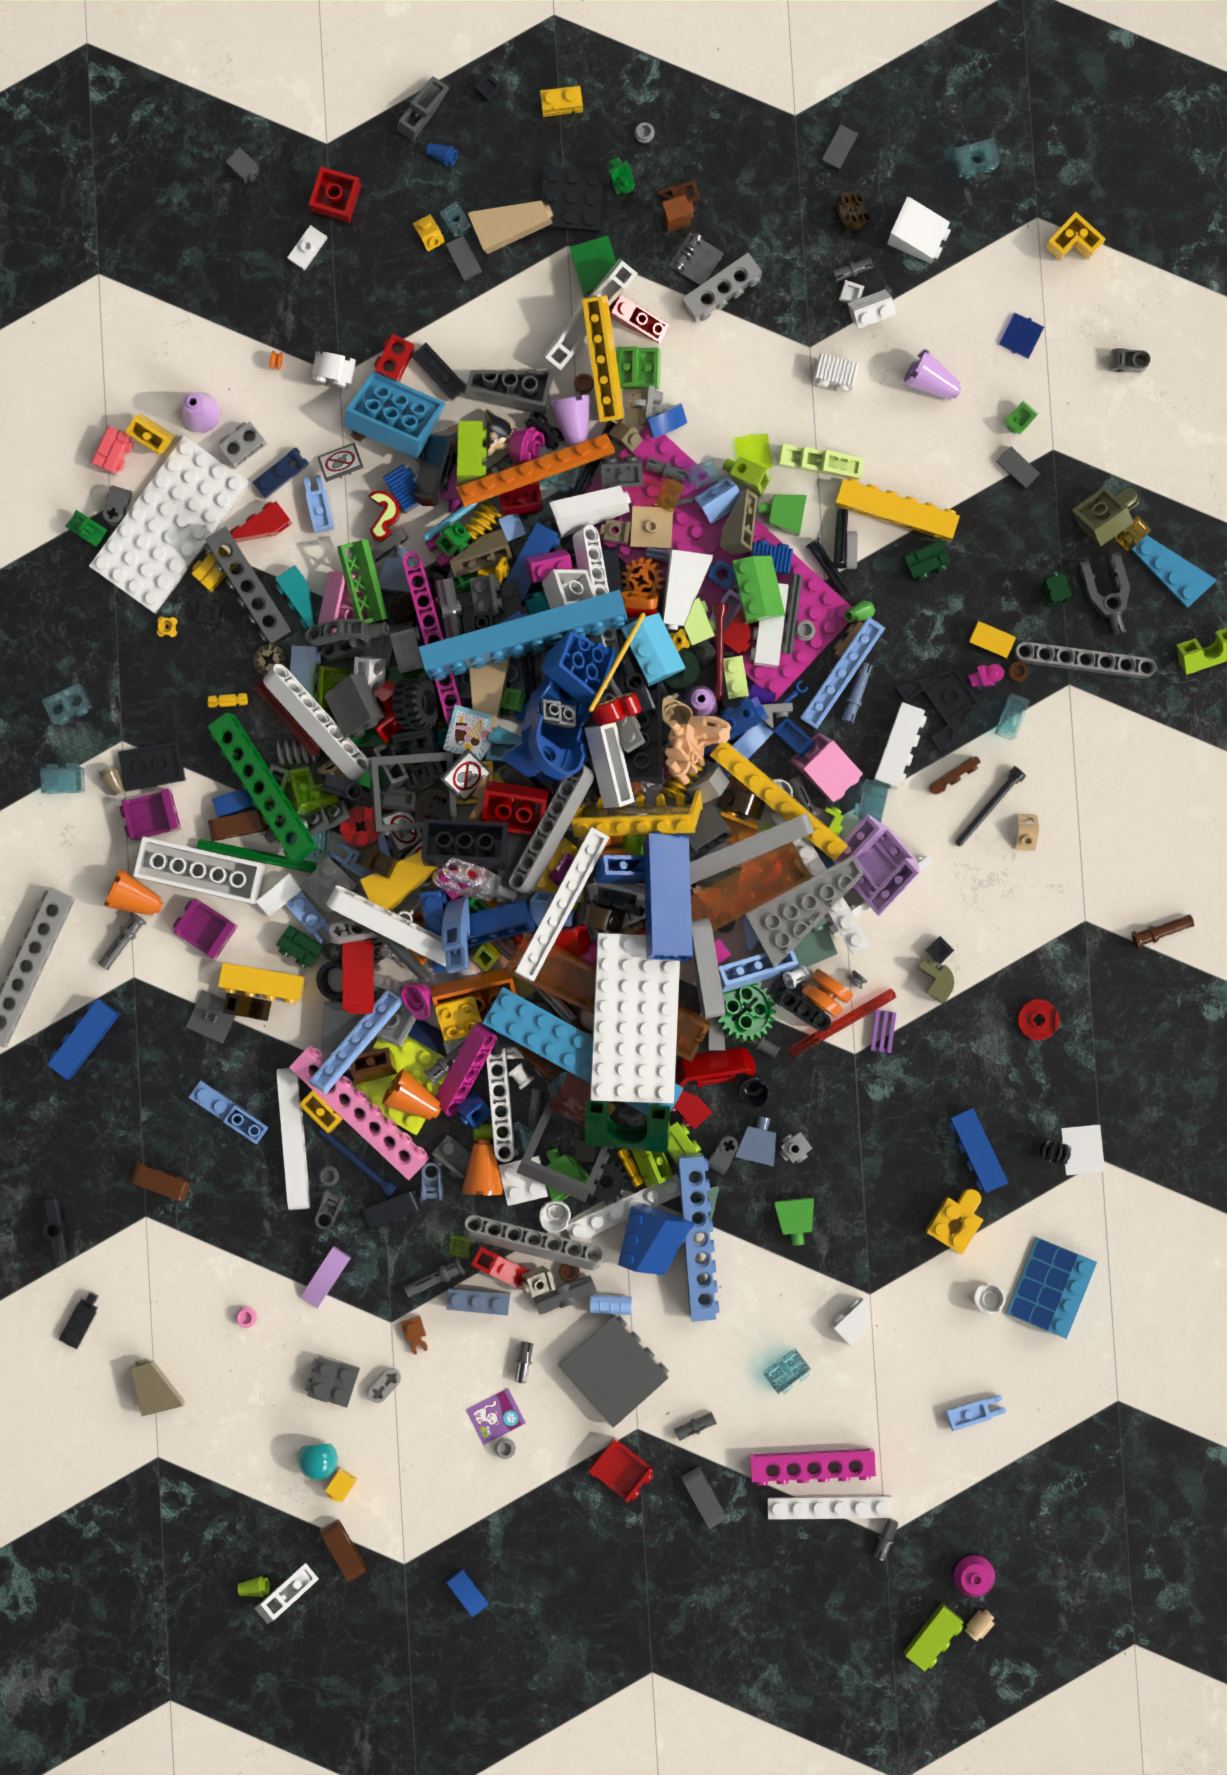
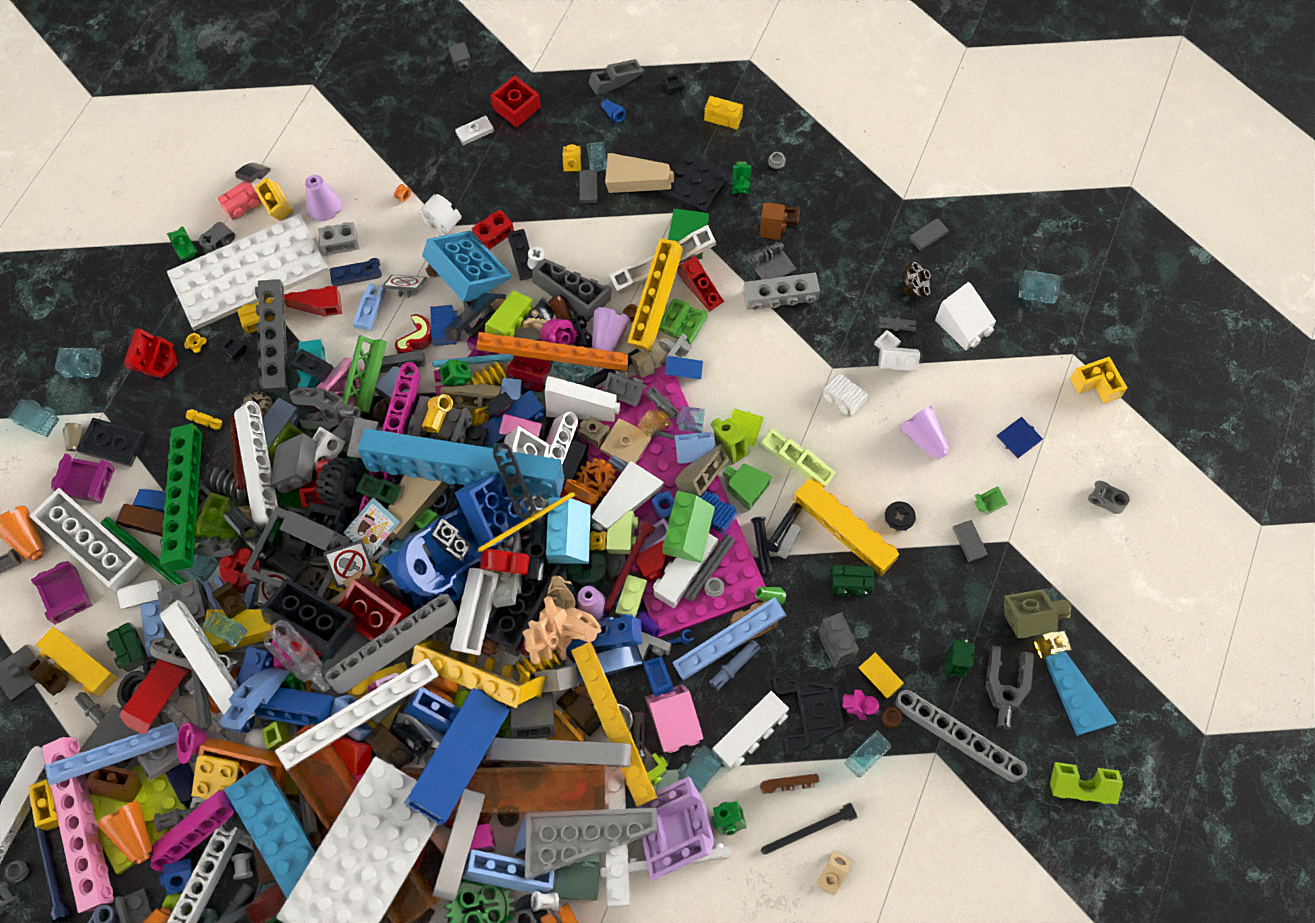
camera: 20 degrees right, 20 degrees down
(107, 412) = (252, 171): none -> black slope
(134, 663) = (150, 355): none -> red piece
(303, 1015) = (90, 708): none -> dark grey axle
(306, 598) = (312, 365): none -> black plate
(402, 889) = (225, 628): none -> clear light blue slope
(420, 766) = (309, 531): none -> dark grey brick
(454, 694) = (378, 489): none -> dark green slope
(456, 368) = (535, 255): none -> white bush
(462, 585) = (436, 414): none -> yellow piece
(510, 413) = (560, 307): none -> reddish brown cone
(516, 552) = (499, 405): none -> black brick
(586, 634) = (517, 479): none -> black beam
(917, 831) = (729, 818): none -> green brick
(941, 627) = (838, 641): none -> dark grey brick
(952, 475) = (903, 509): none -> black gear

